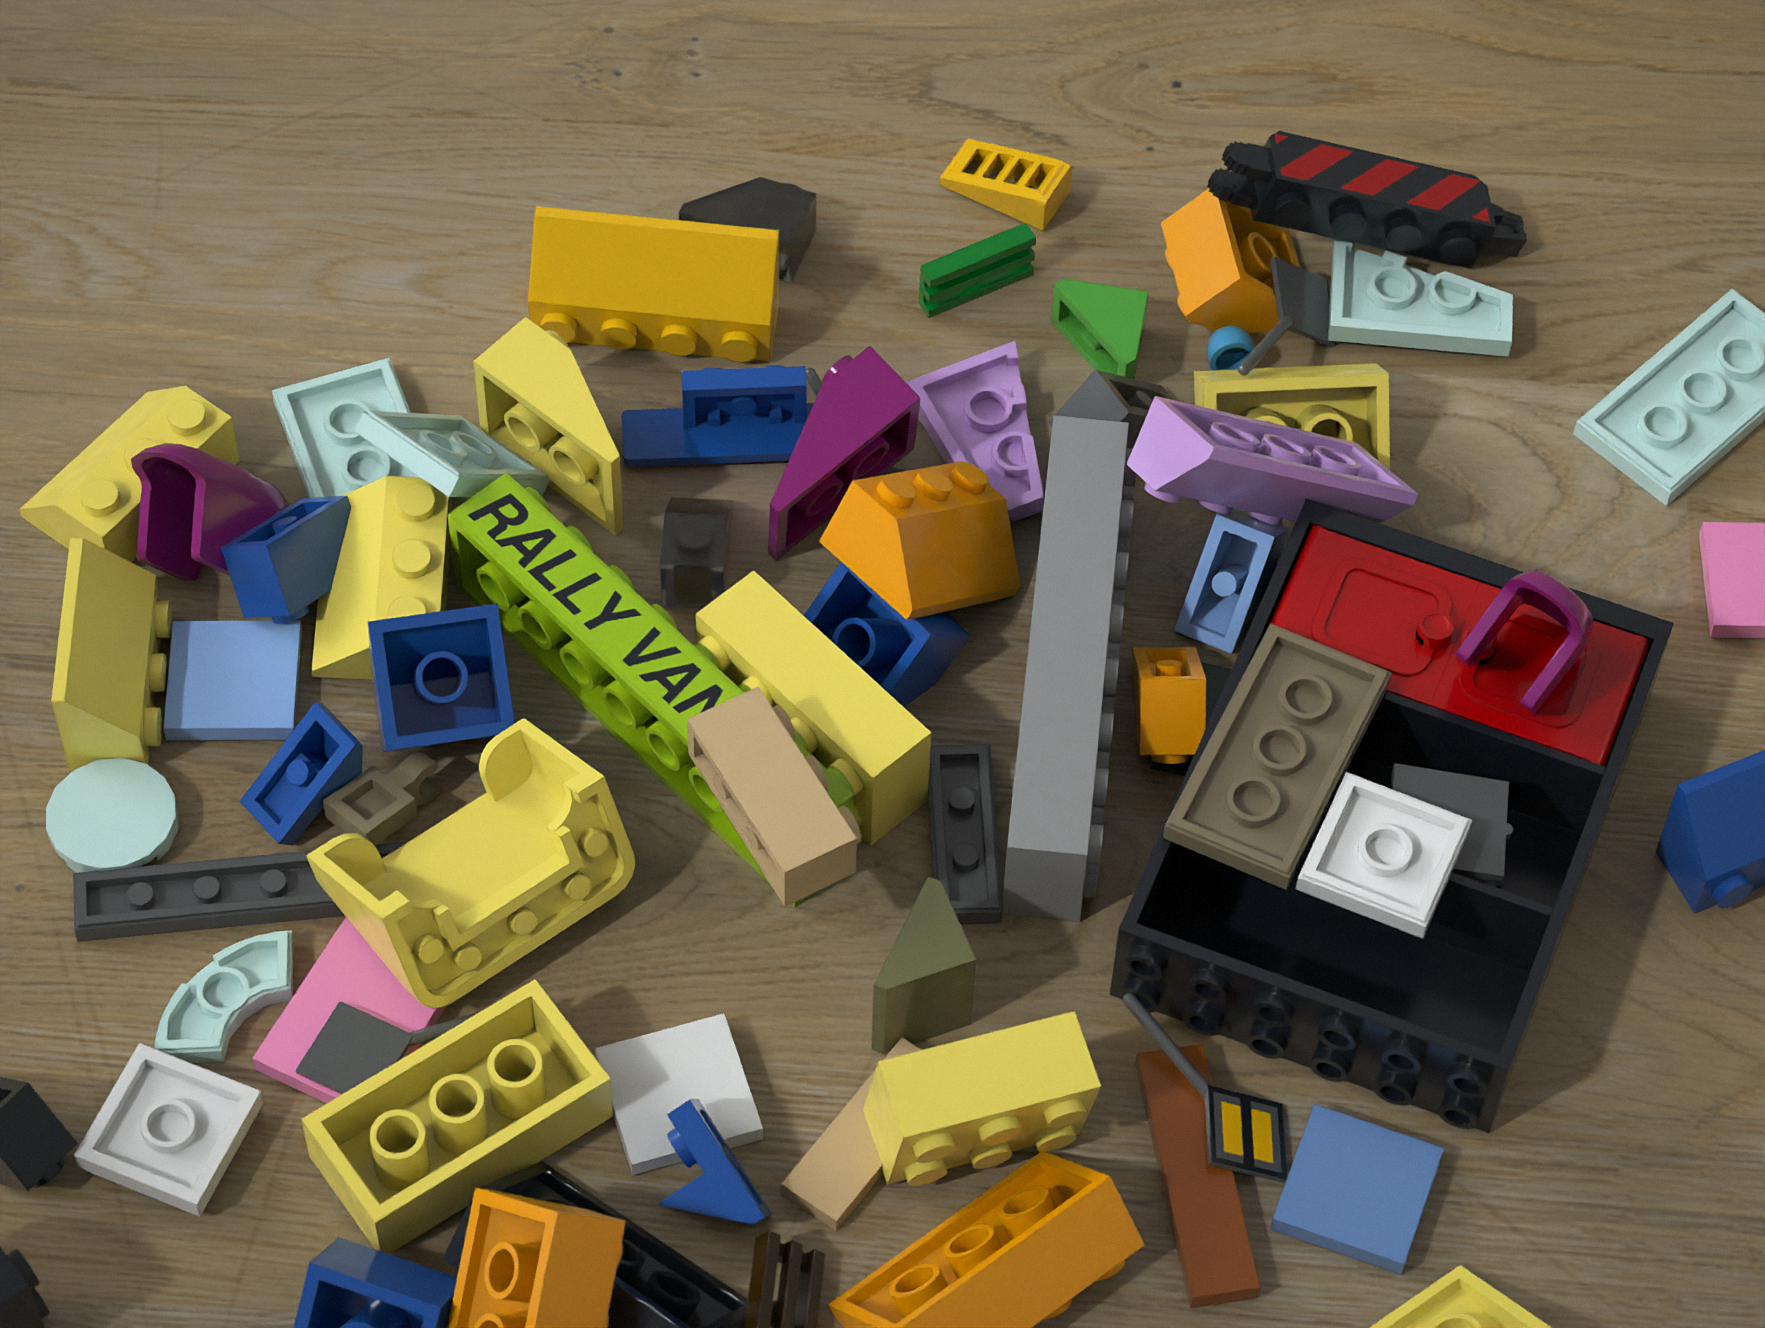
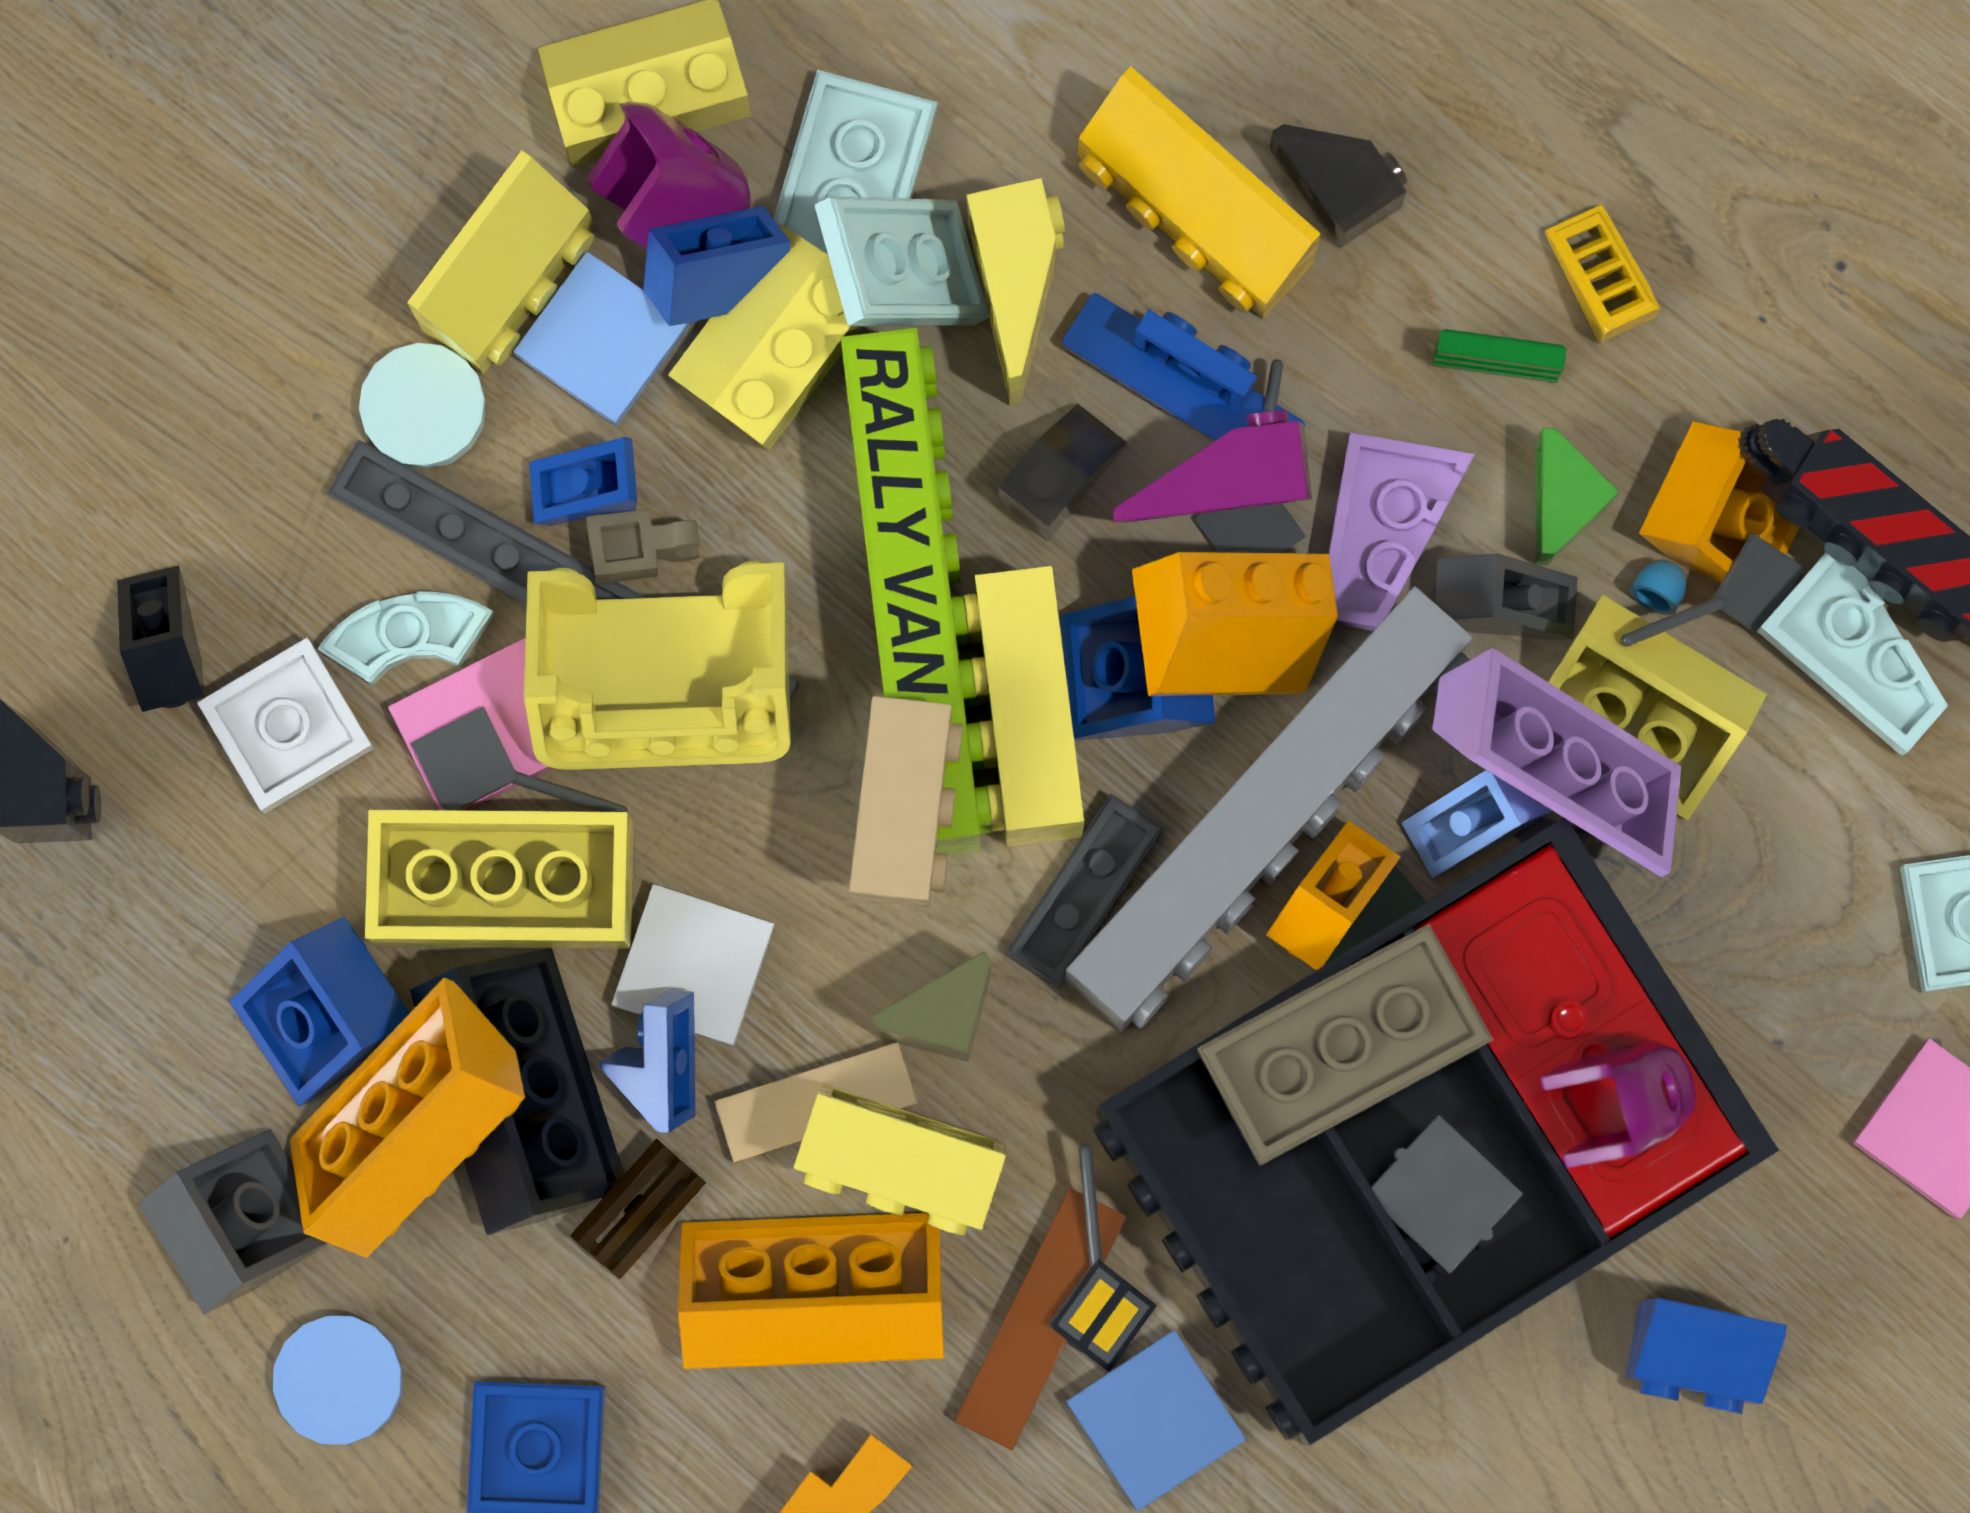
camera: 40 degrees right, 25 degrees up
(440, 677) = (742, 482): blue slope -> none
(1384, 855) = (1359, 1194): white tile -> none

